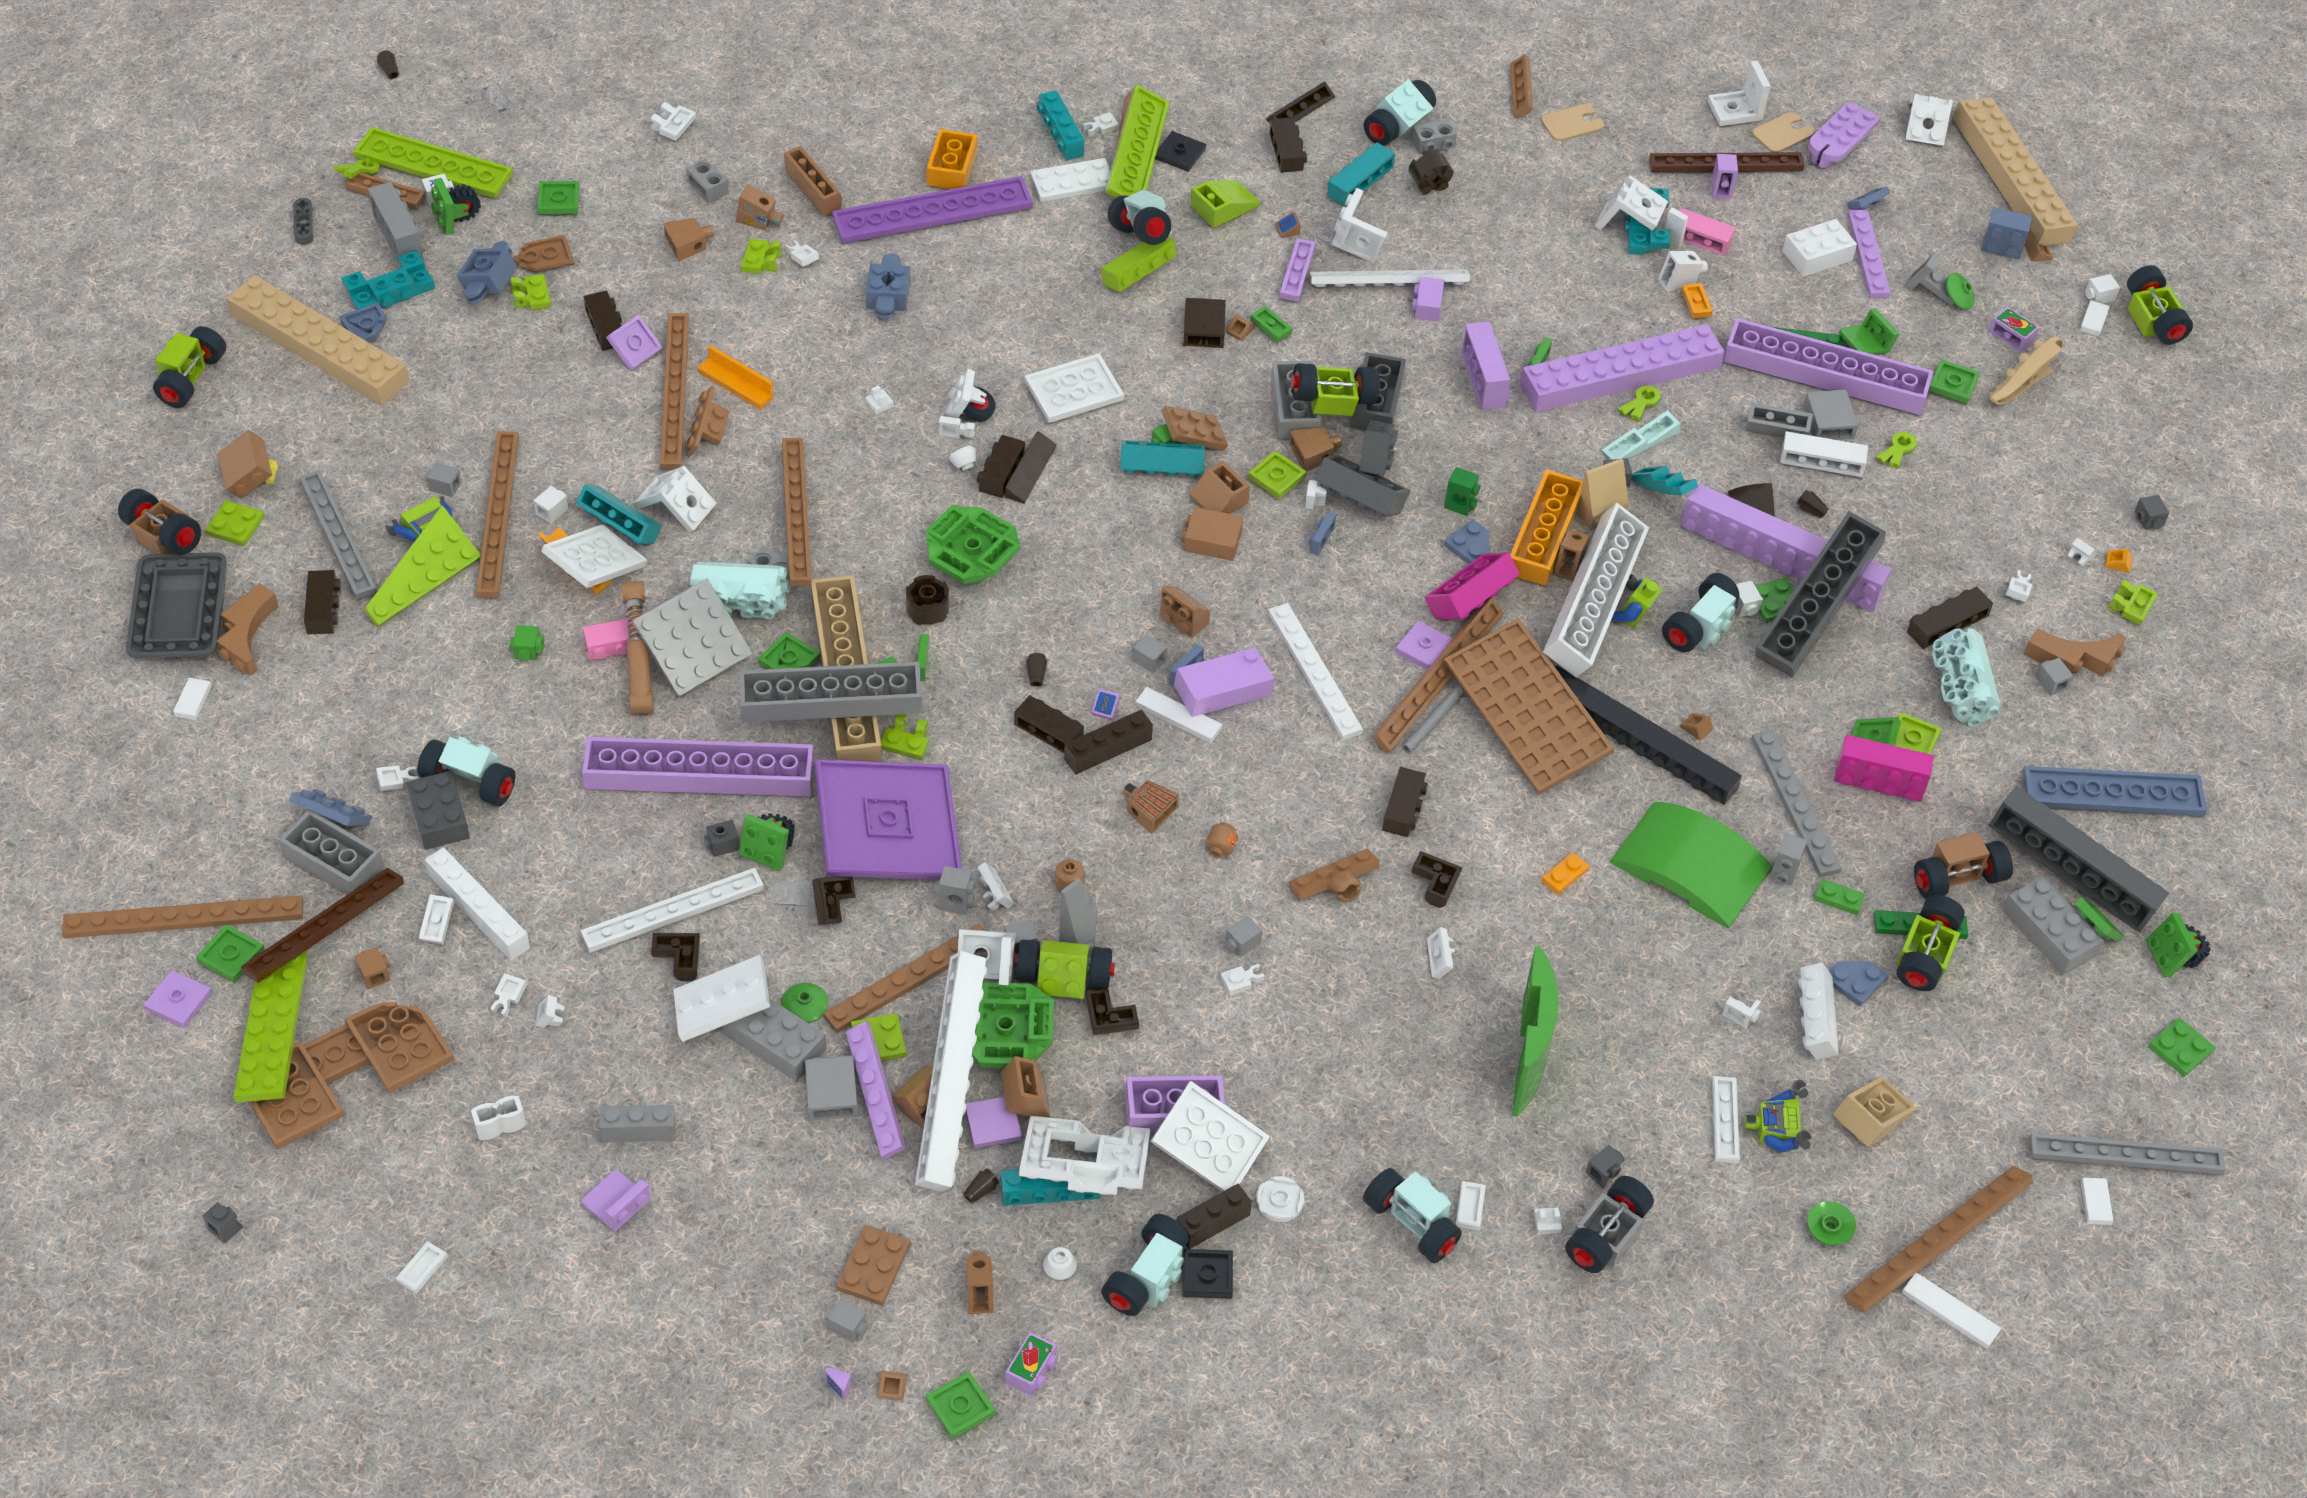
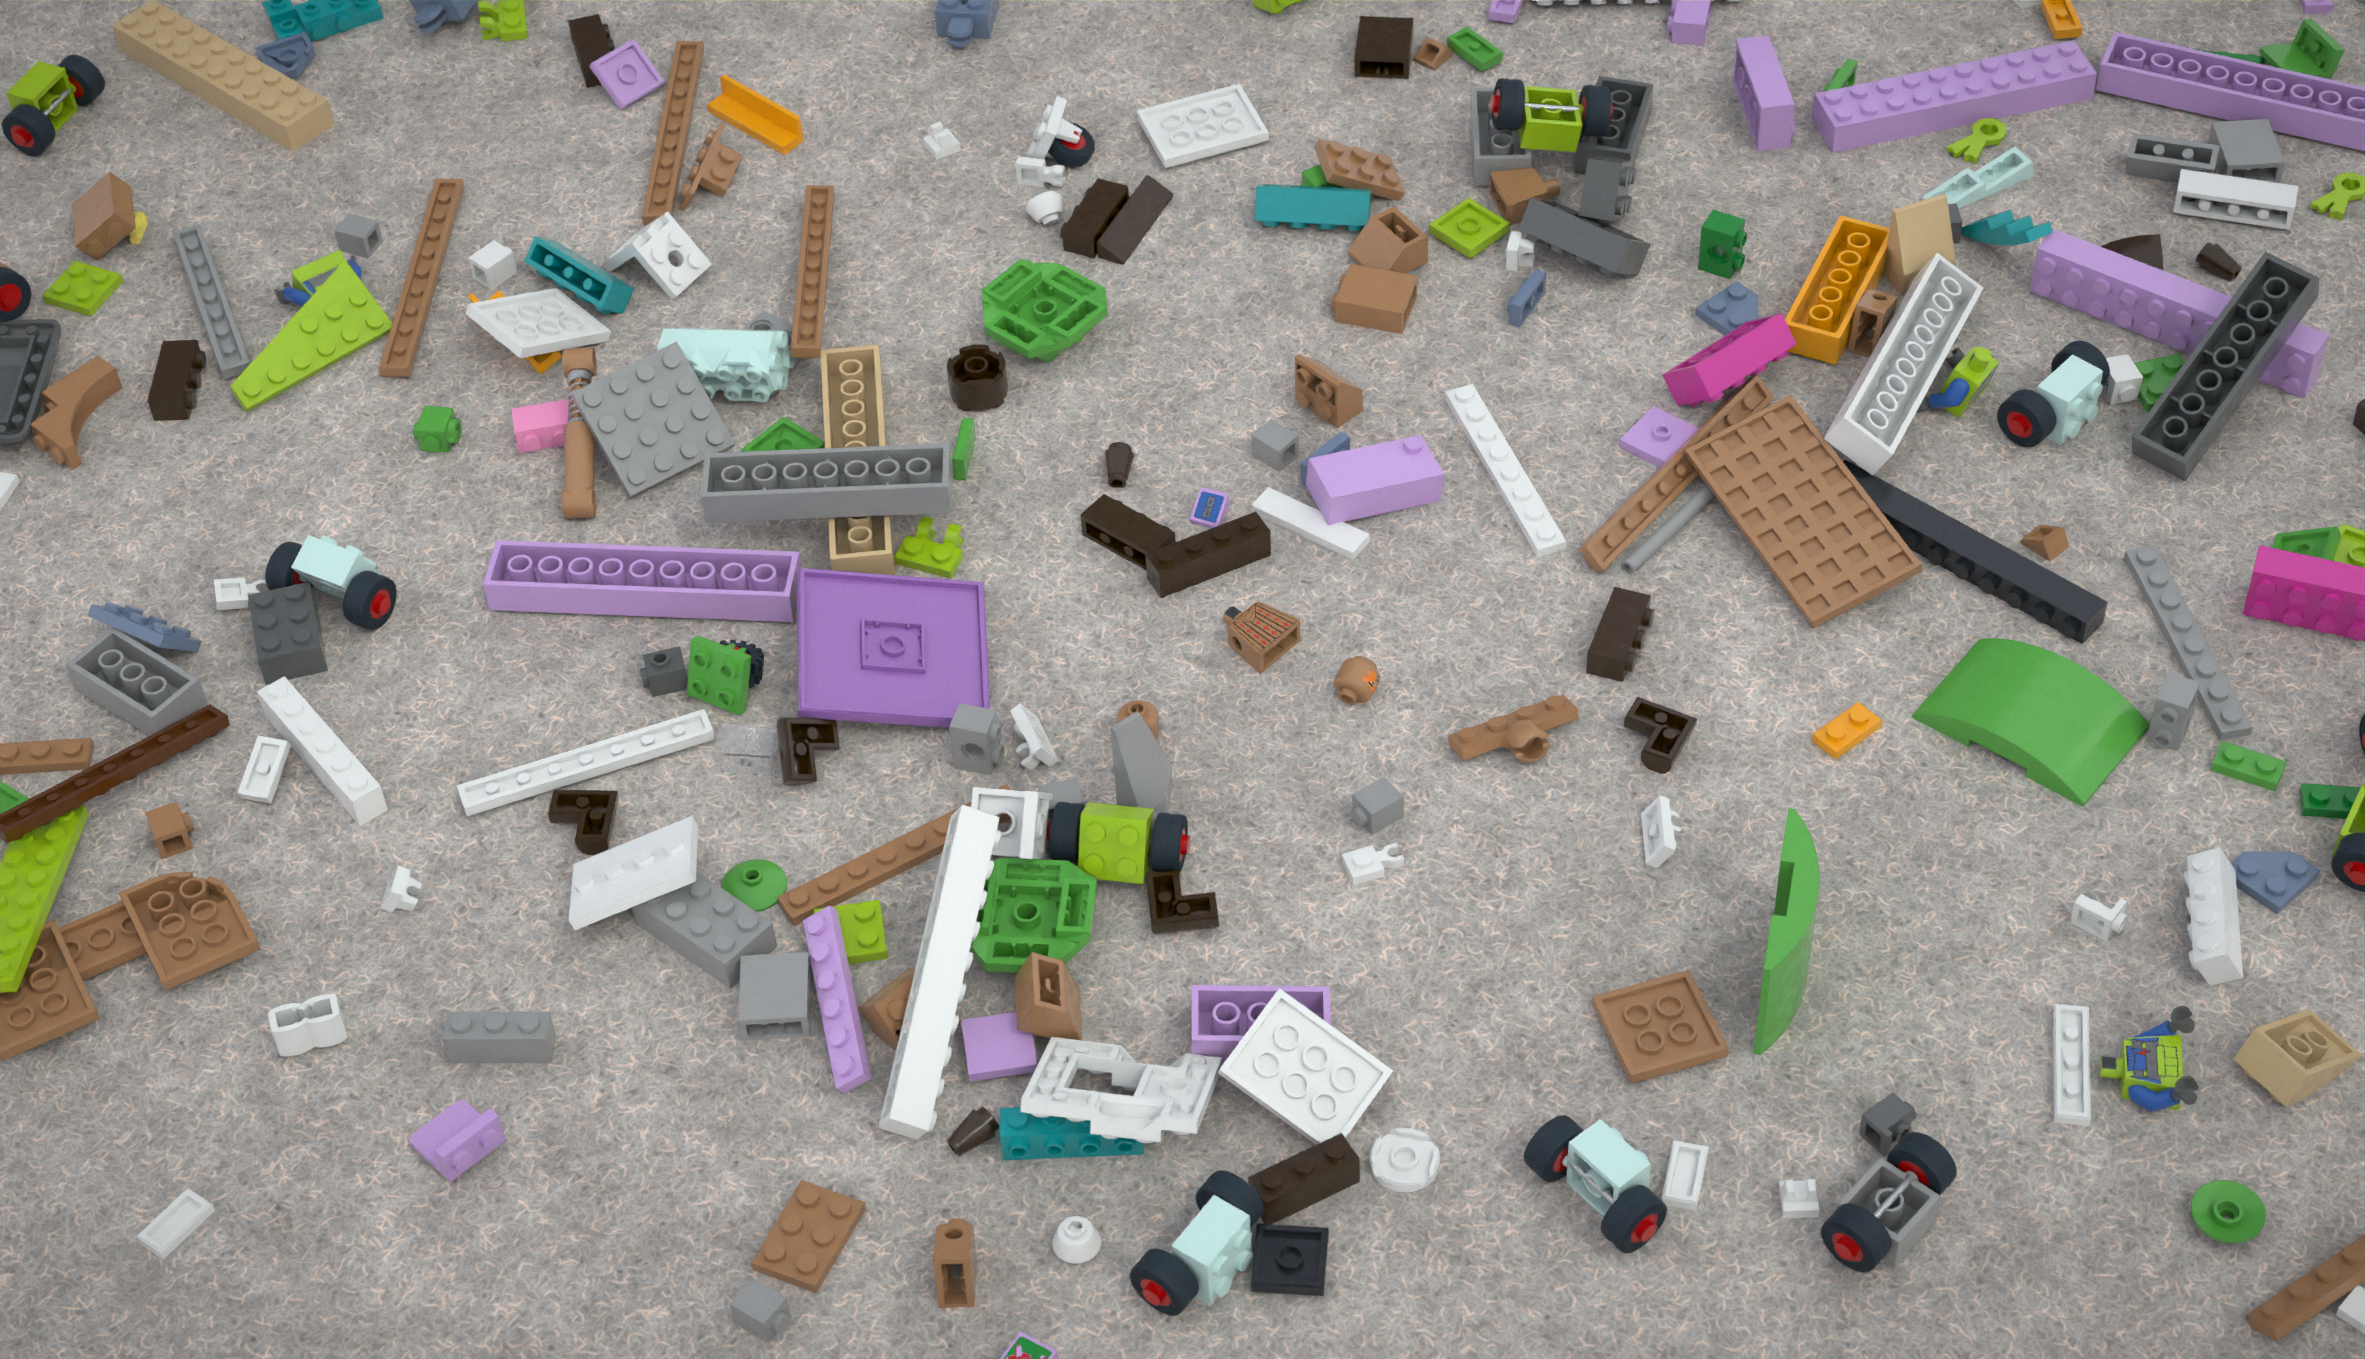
camera: 10 degrees right, 5 degrees down
(508, 991) = (347, 863): white plate -> none
(1448, 1098) = (1660, 1026): none -> medium nougat plate

